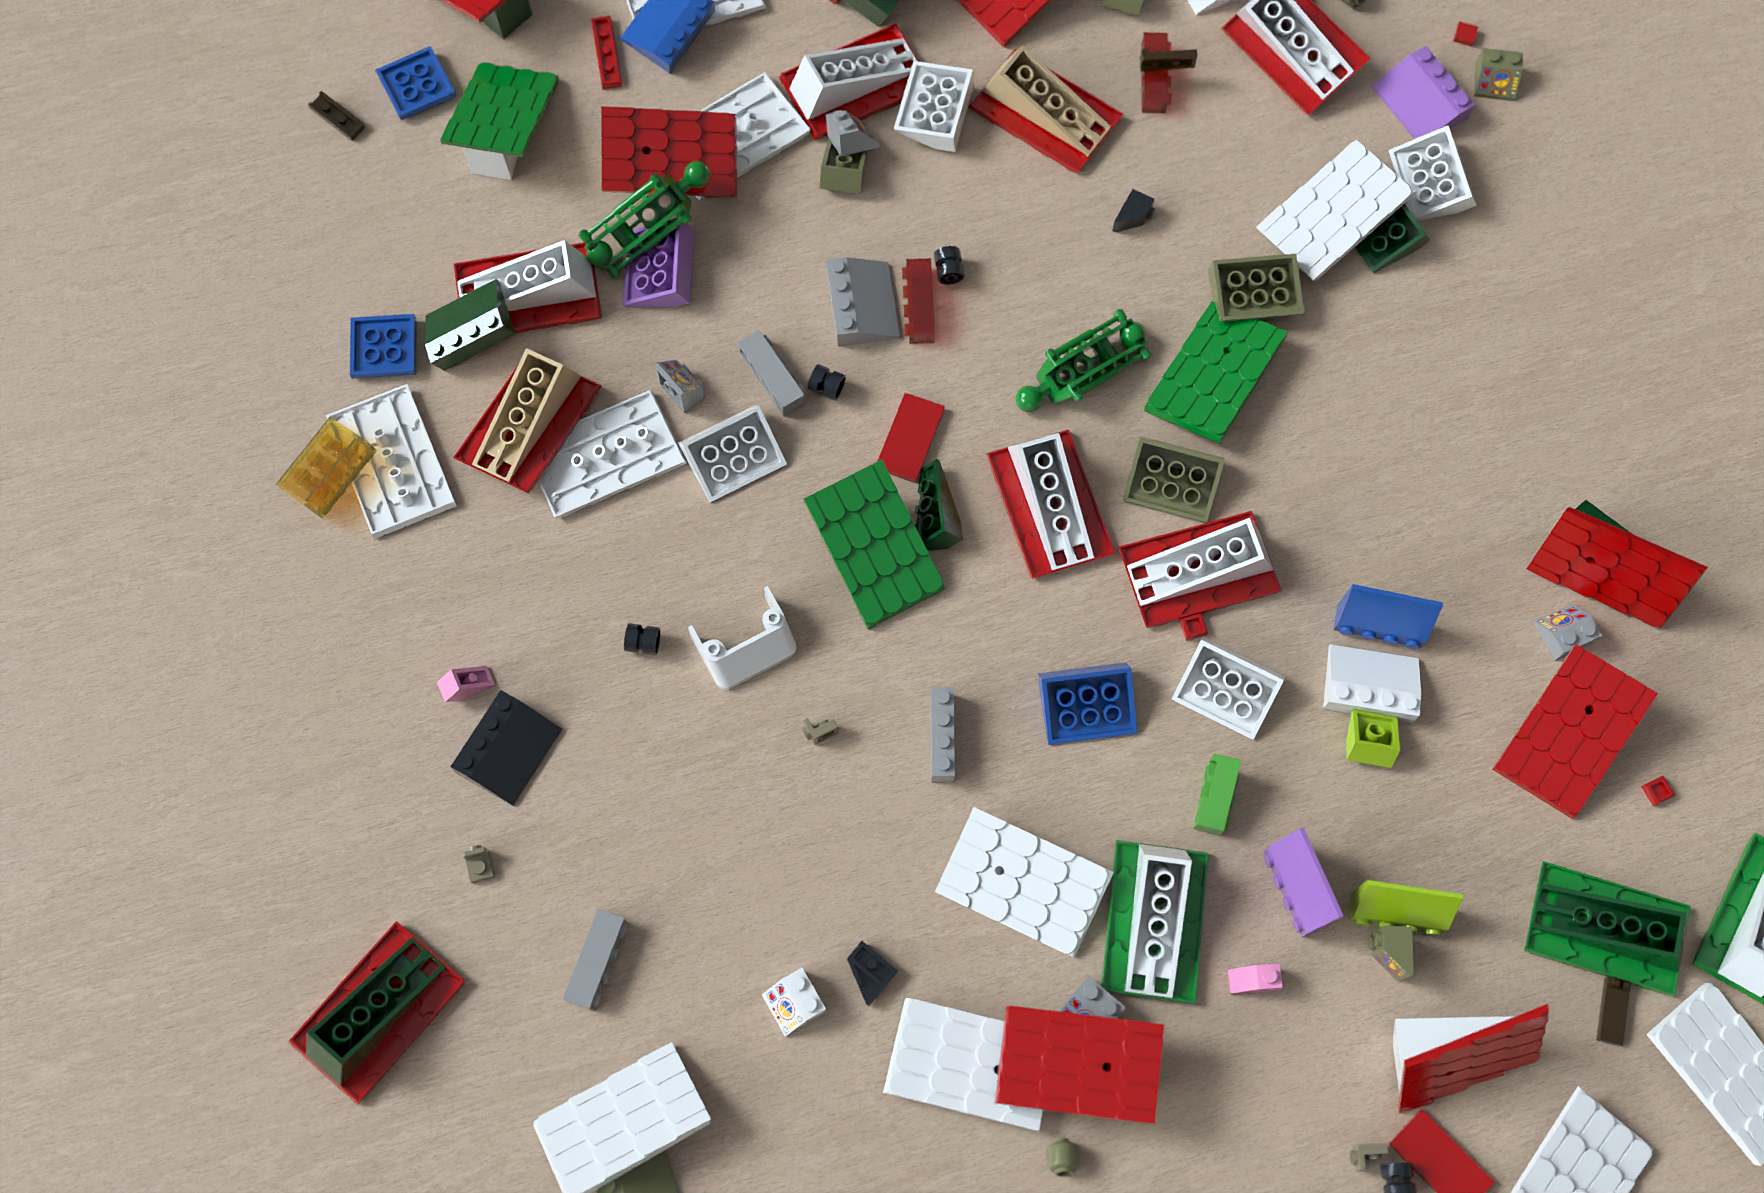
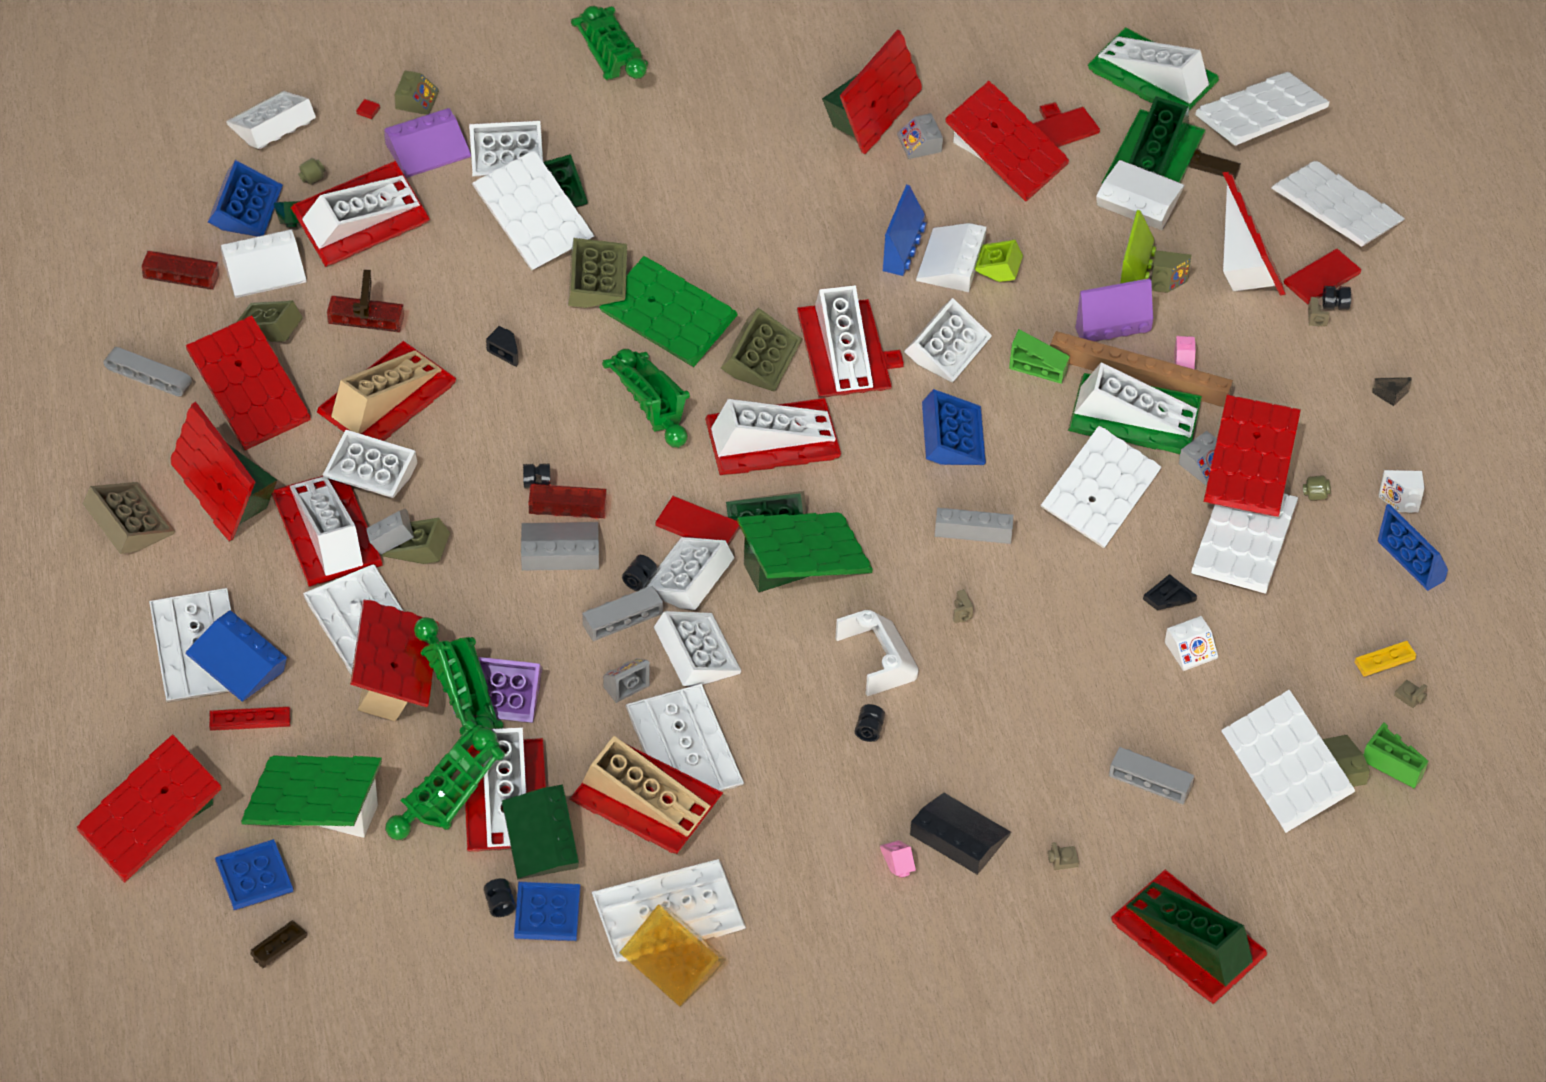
camera: 85 degrees left, 20 degrees down
(392, 298) = (499, 897): none -> black wheel
(507, 223) = (440, 797): none -> green piece
(835, 433) = (690, 571): none -> white slope
(1224, 924) = (1146, 369): none -> medium nougat brick
(1527, 909) = (1136, 189): none -> white slope
(1631, 263) = (610, 43): none -> green piece
(1631, 808) = (1068, 127): none -> red tile

